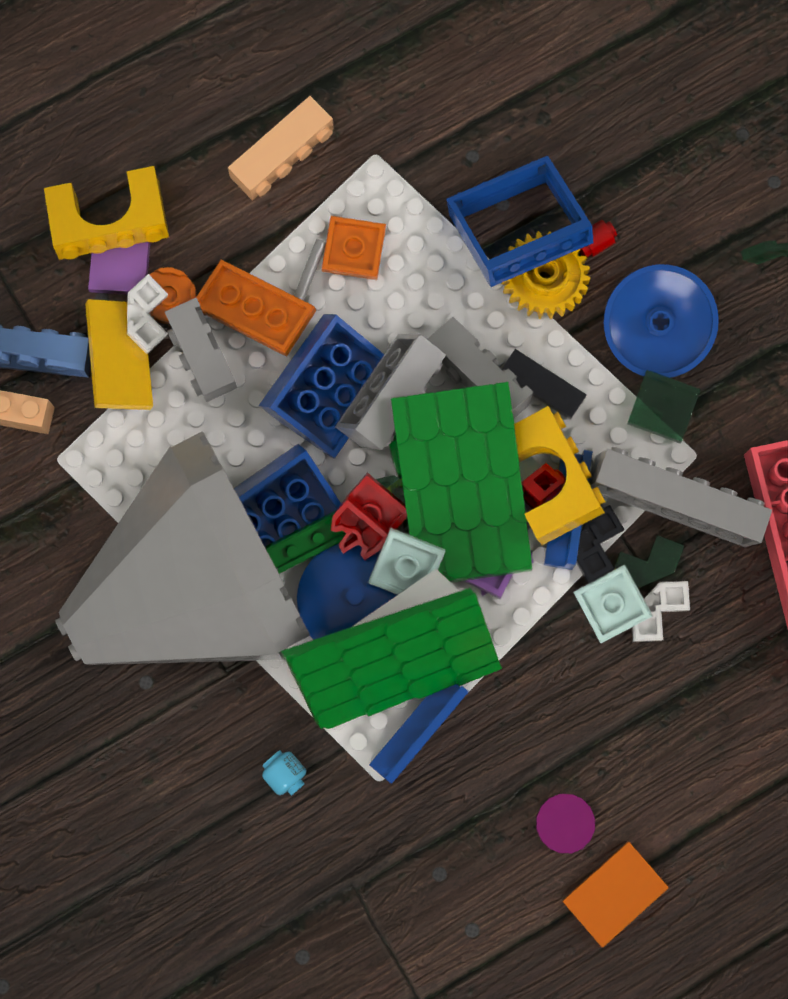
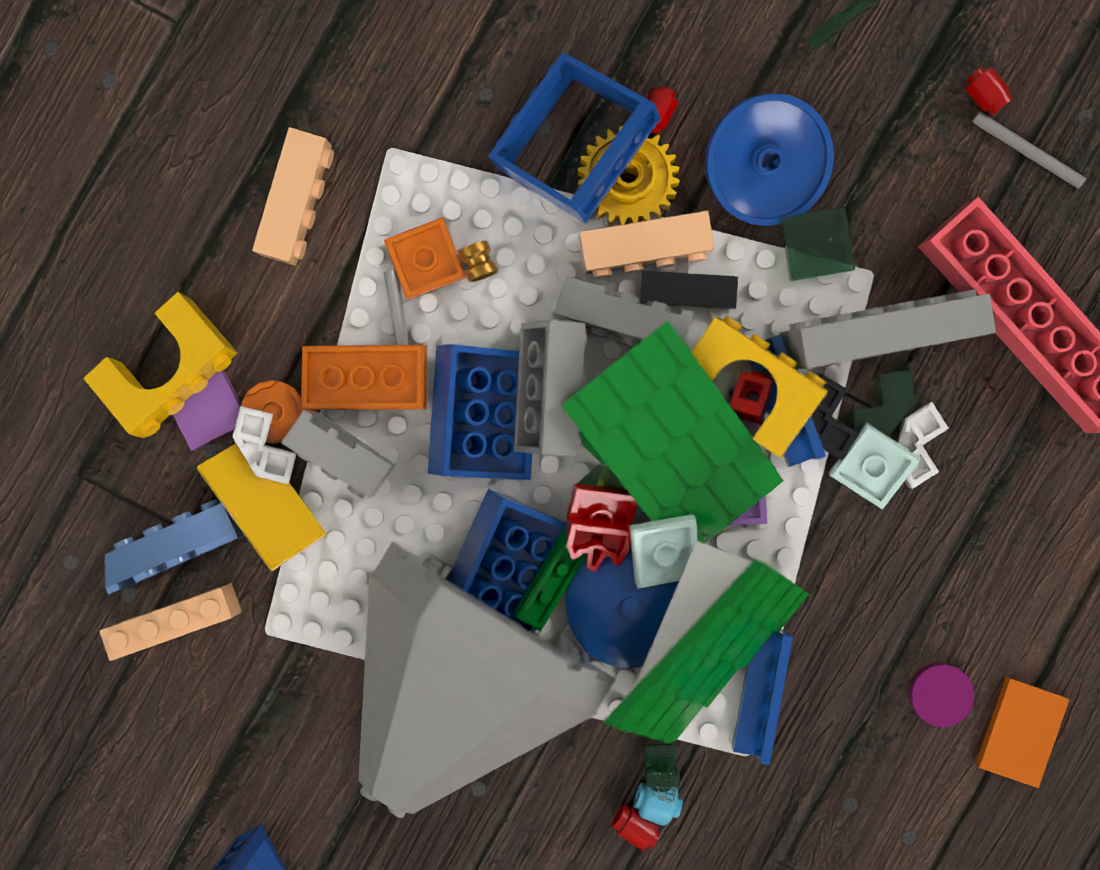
camera: 30 degrees left, 10 degrees up
(253, 783) = (634, 828): none -> red brick
(304, 743) = (661, 767): none -> clear green bracket
(393, 270) = (477, 259): none -> pearl gold wheel
(529, 329) = (646, 243): none -> light nougat brick

